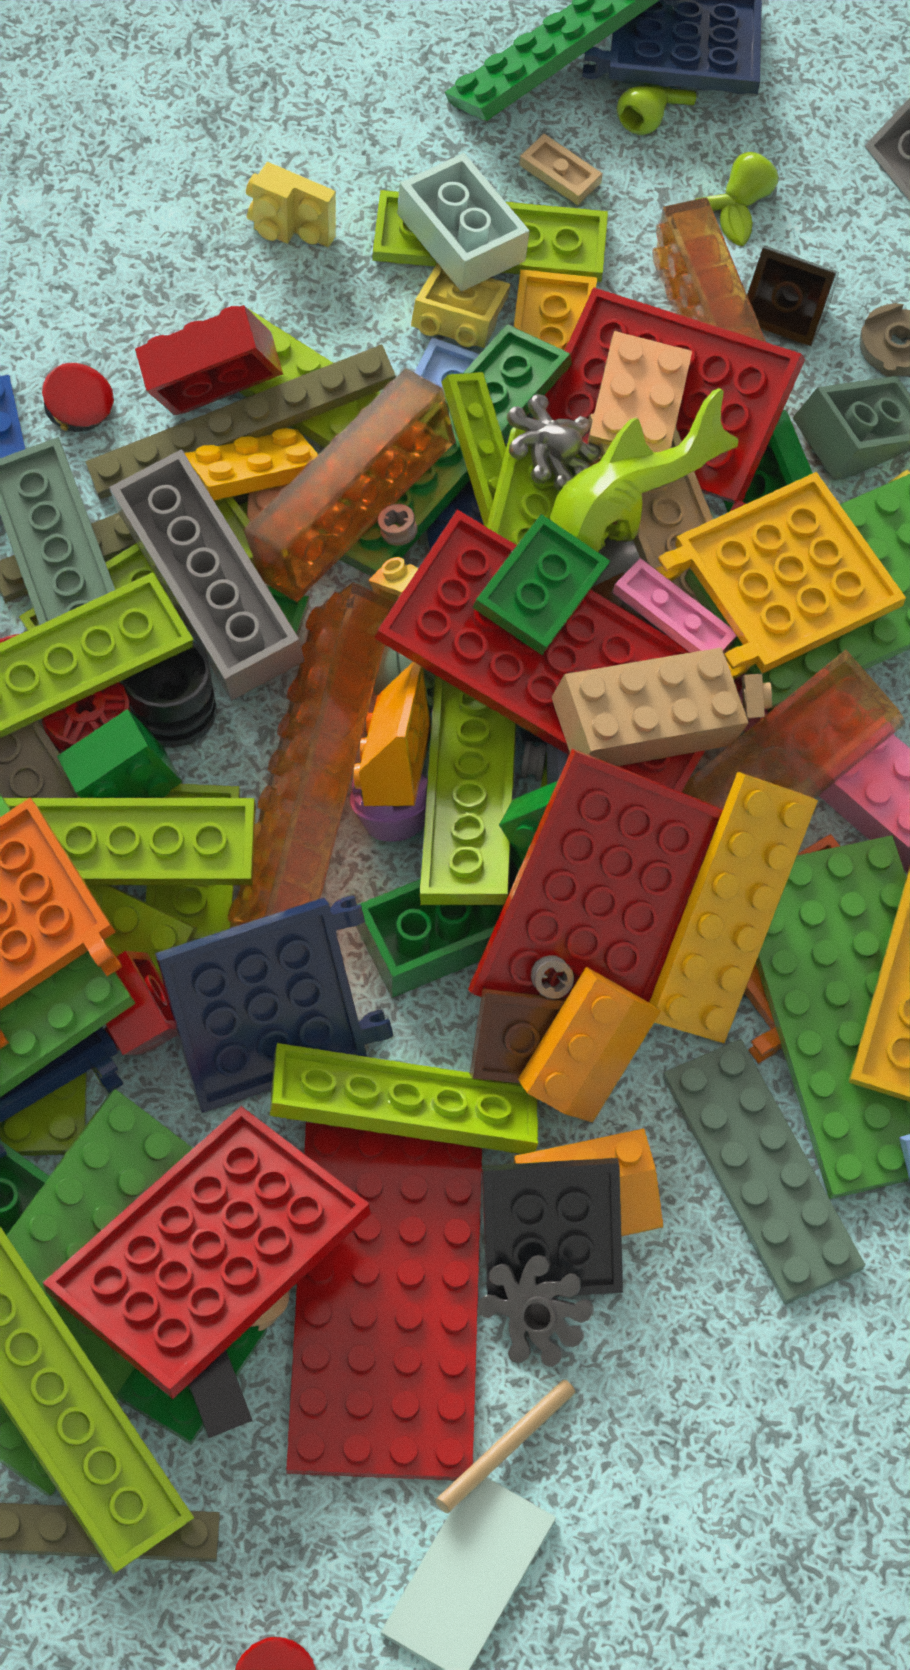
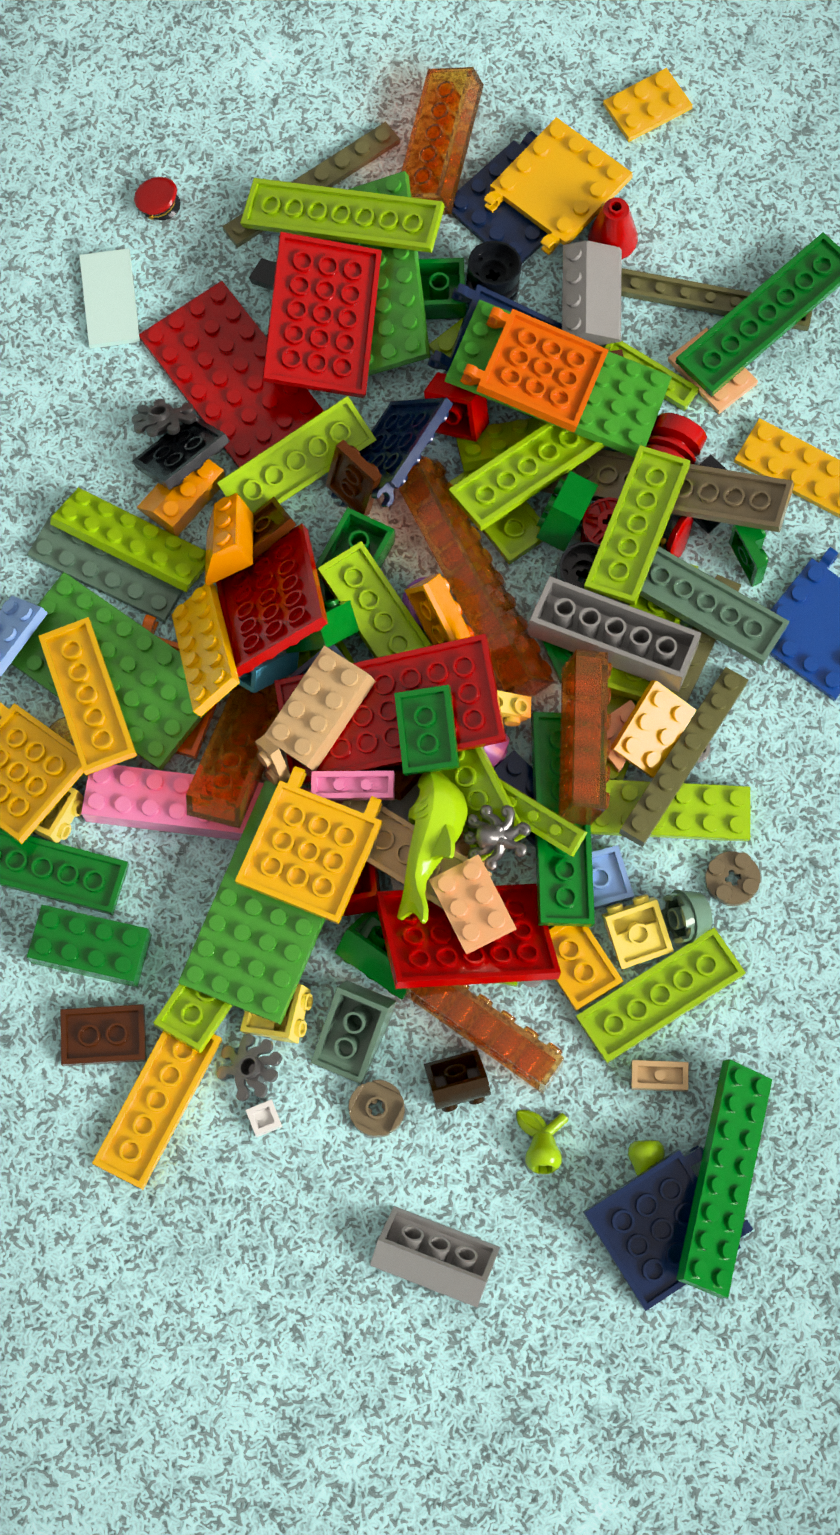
camera: 150 degrees right, 10 degrees up
(76, 397) = (786, 710): red piece -> none
(208, 360) = (728, 765): red brick -> none
(291, 205) = (786, 908): light yellow plate -> none
(297, 271) = (738, 864): none -> dark tan plate
(361, 977) = (353, 478): none -> reddish brown plate
(393, 272) = (686, 915): none -> sand green cone
(403, 516) = (535, 744): light grey bush -> none
(462, 222) = (673, 967): light aqua brick -> none
(505, 1446) = (133, 356): tan bar -> none
(545, 988) = (268, 555): light grey bush -> none
(709, 1174) = (130, 539): none -> lime plate

